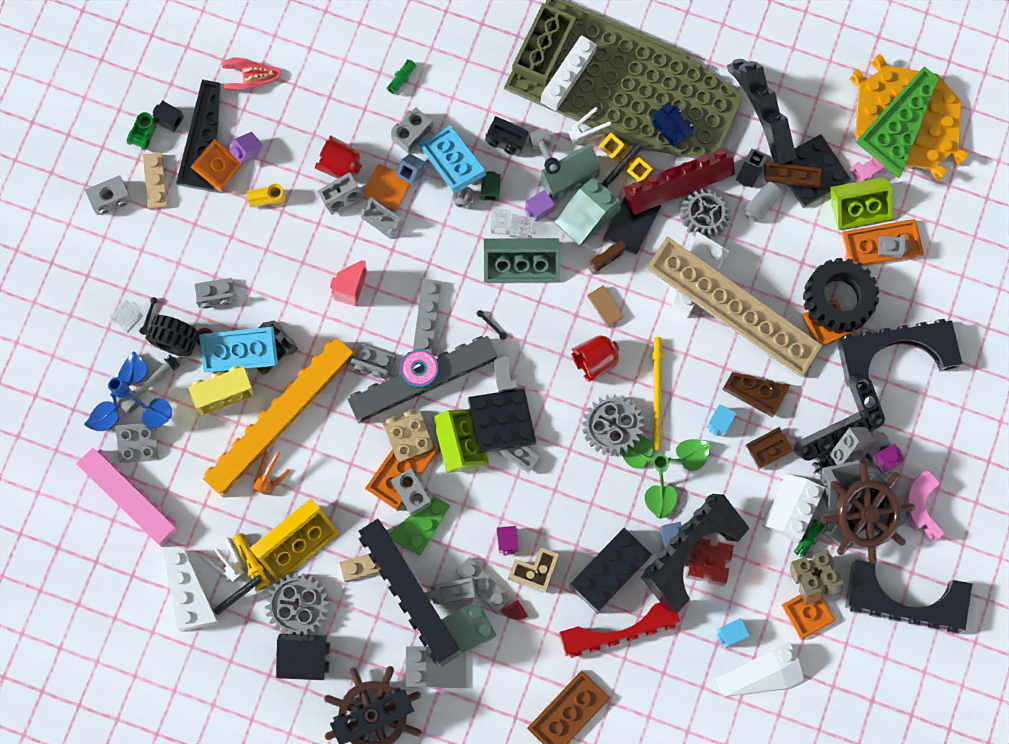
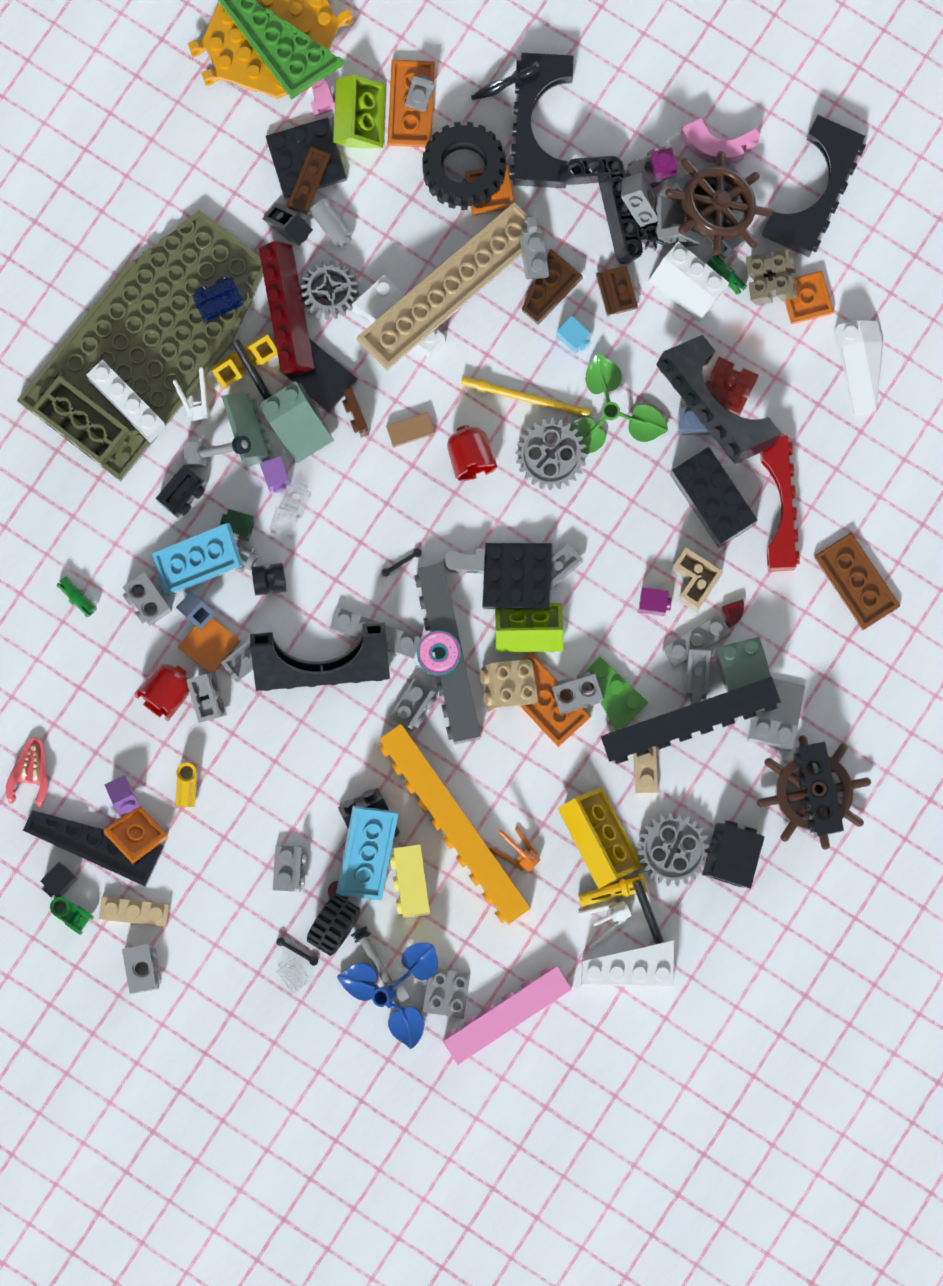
camera: 70 degrees left, 5 degrees up
(349, 283) = (319, 710): coral slope -> none
(376, 245) = (279, 670): none -> black arch
(450, 219) = (261, 581): none -> black wheel
(521, 260) = (334, 510): sand green slope -> none
(732, 633) = (811, 383): medium azure brick -> none
(775, 124) = (222, 187): black arch -> none
(783, 369) = (533, 250): none -> light grey hinge
(917, 308) = (497, 86): none -> black piece

